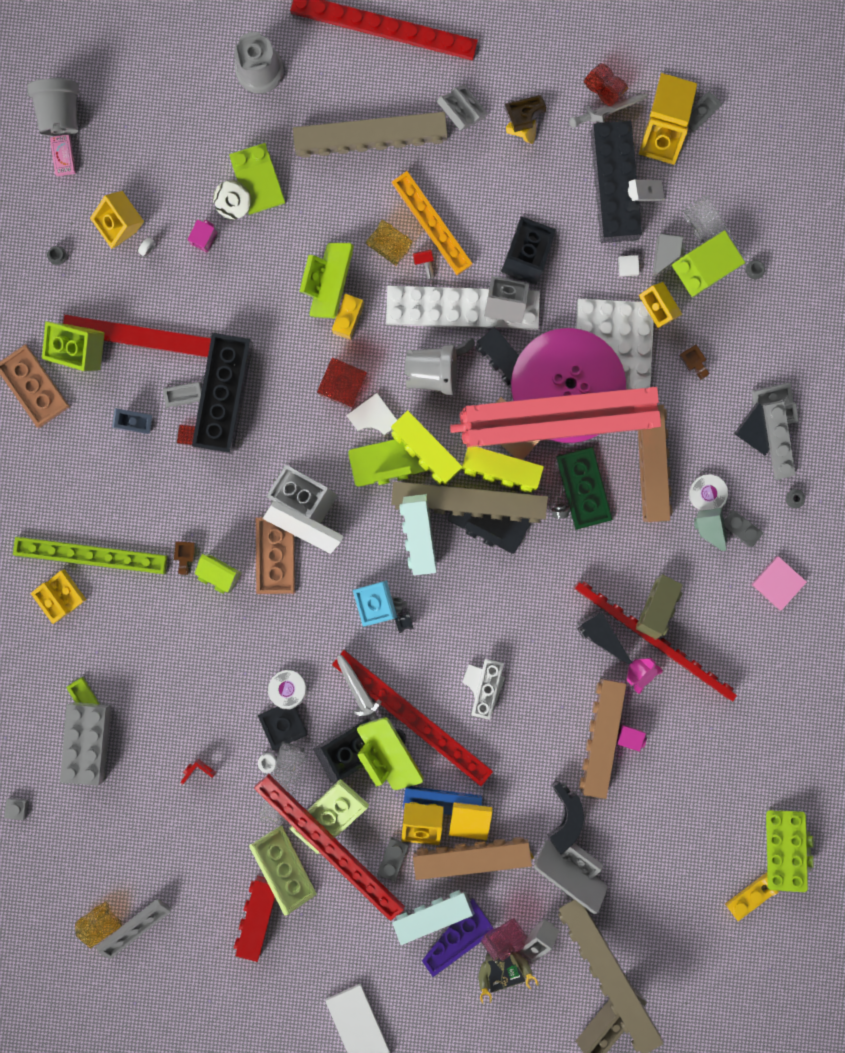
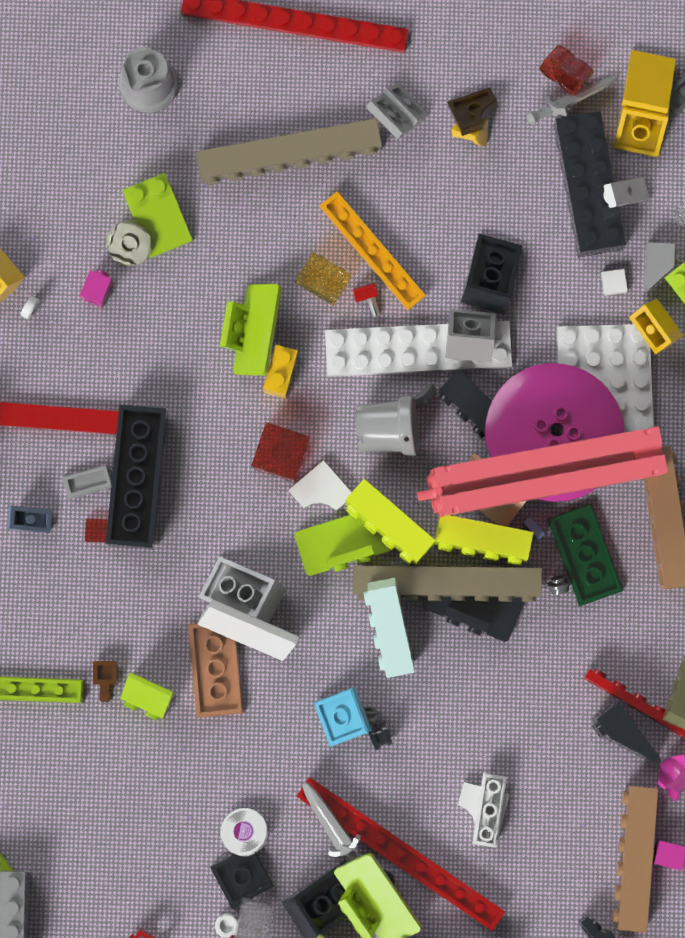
camera: 10 degrees left, 5 degrees down
(541, 460) = (532, 526): none -> medium blue tile

